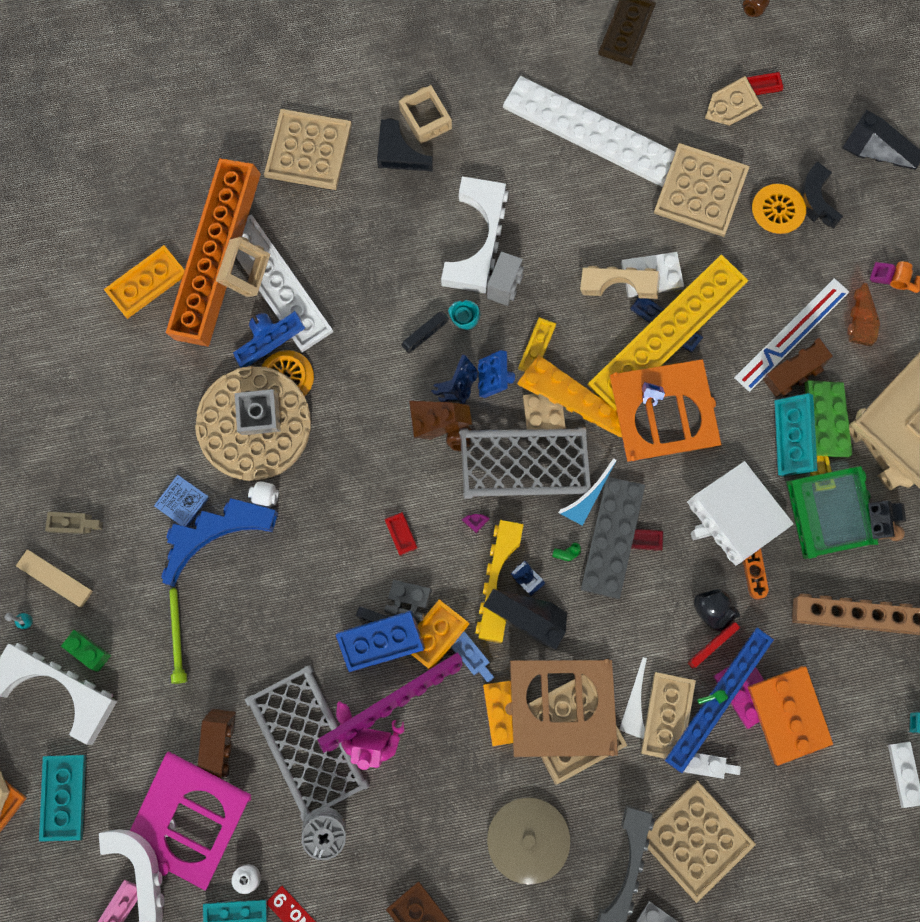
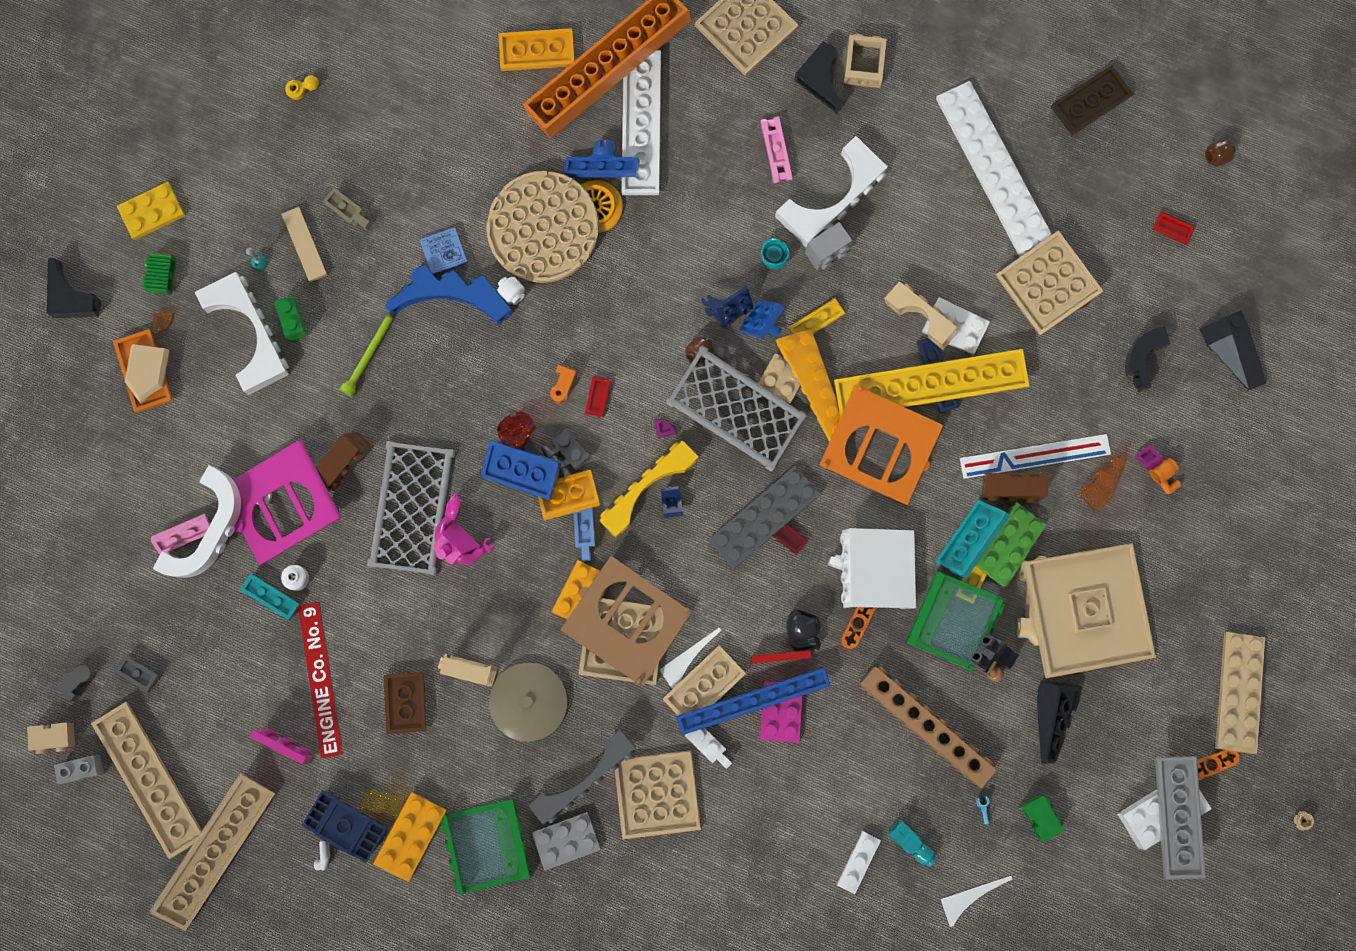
camera: 30 degrees right, 5 degrees up
(62, 798) = (199, 419): teal plate -> none
(257, 412) = (550, 220): light grey brick -> none
(261, 259) = (630, 103): tan window -> none
(319, 822) = (379, 574): light grey wheel -> none
(351, 599) = (522, 425): none -> clear red plate
(366, 547) = (561, 390): none -> orange leg
(385, 706) = (499, 522): magenta plate -> none
(404, 231) = (776, 149): none -> bright pink plate
(425, 332) = (733, 246): black beam -> none
(438, 418) = (690, 324): reddish brown wedge -> none
(458, 852) = (467, 670): none -> tan window
(532, 616) = (655, 536): black wedge -> none
(568, 554) = (719, 506): green arm -> none
(580, 509) = (755, 476): dark azure sticker -> none
(653, 391) = (880, 422): tile -> none
(720, 696) = (755, 698): green hand -> none
(733, 103) = (1133, 227): tan tile -> none
(785, 192) = (1119, 332): light orange piece -> none
(790, 715) = (800, 752): orange plate -> none

